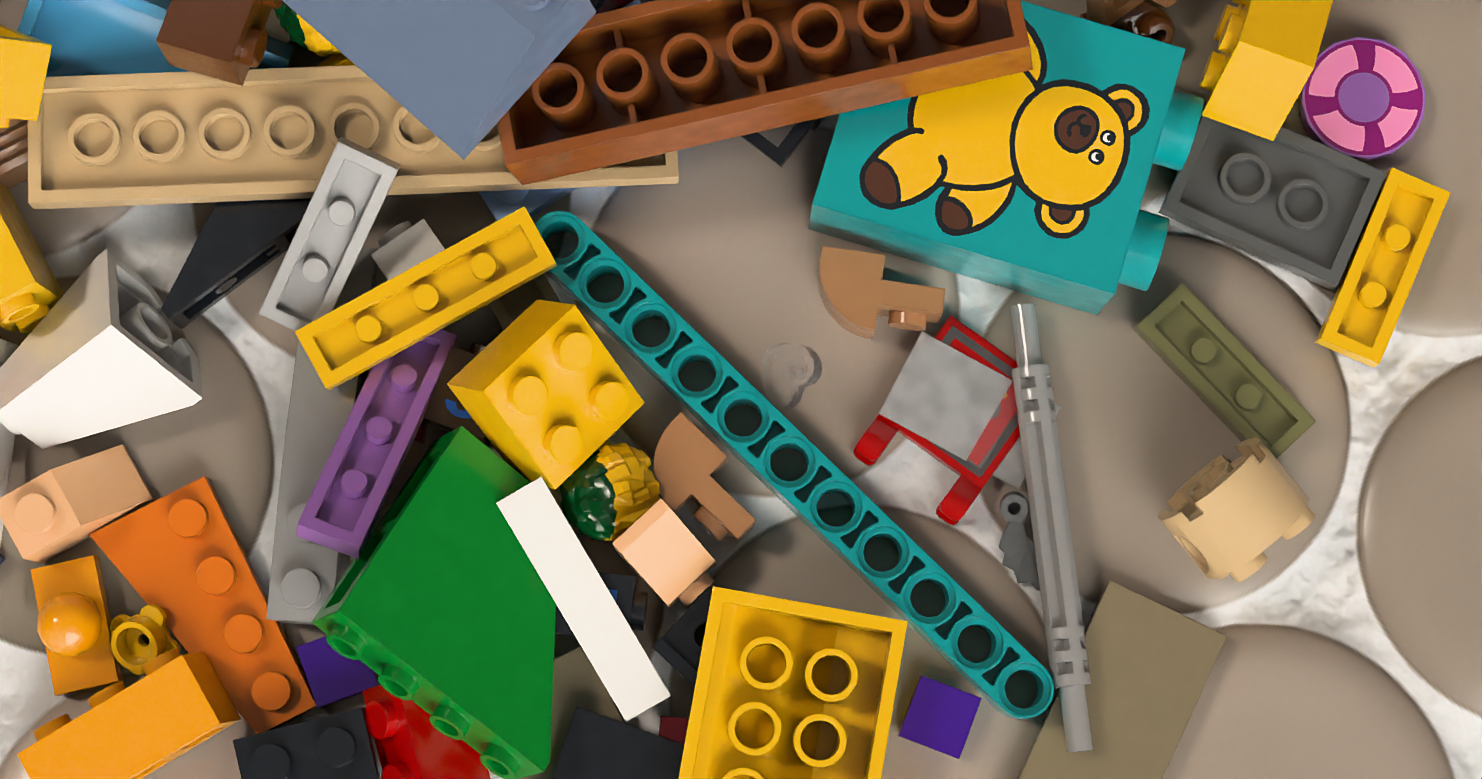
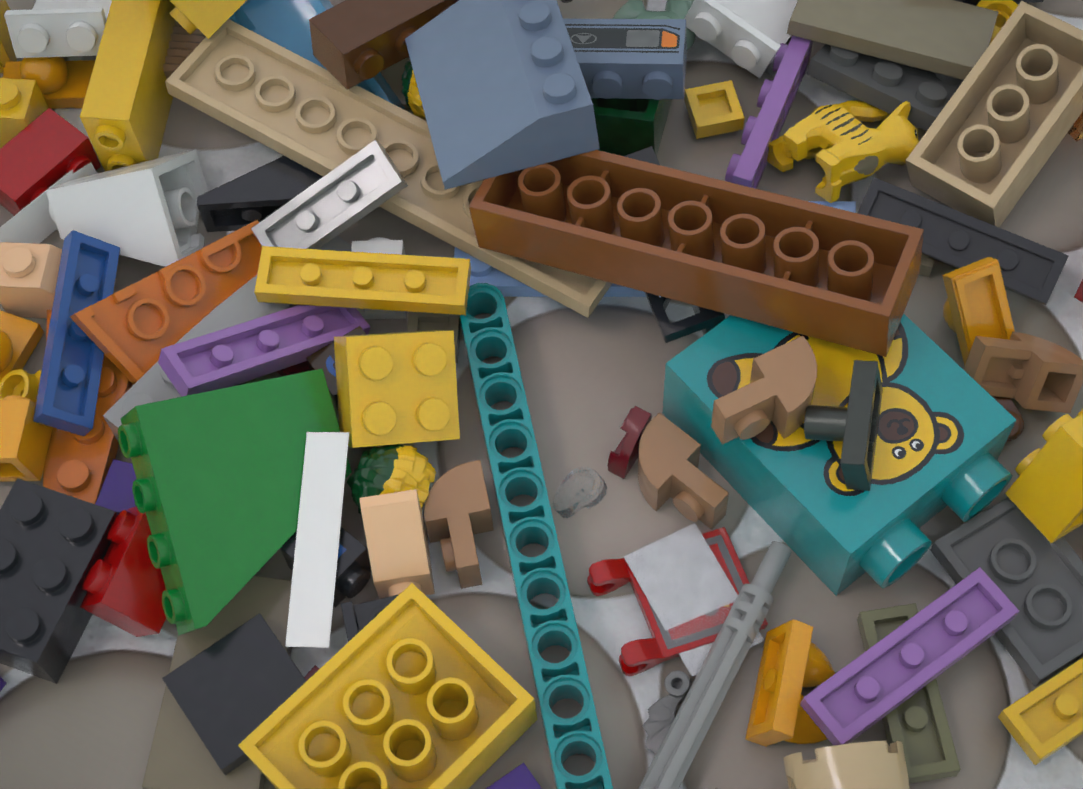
camera: 40 degrees right, 20 degrees down
(160, 545) = (71, 358): none -> blue plate
(234, 446) = (170, 302): none -> orange wing
(804, 289) = (627, 452): none -> dark red tile
(956, 168) = (777, 392): none -> medium nougat brick
(1041, 164) = (852, 424): none -> pearl dark grey tile
(1115, 463) = (785, 667): none -> light orange tile
(1215, 348) = (909, 658): none -> medium lavender plate

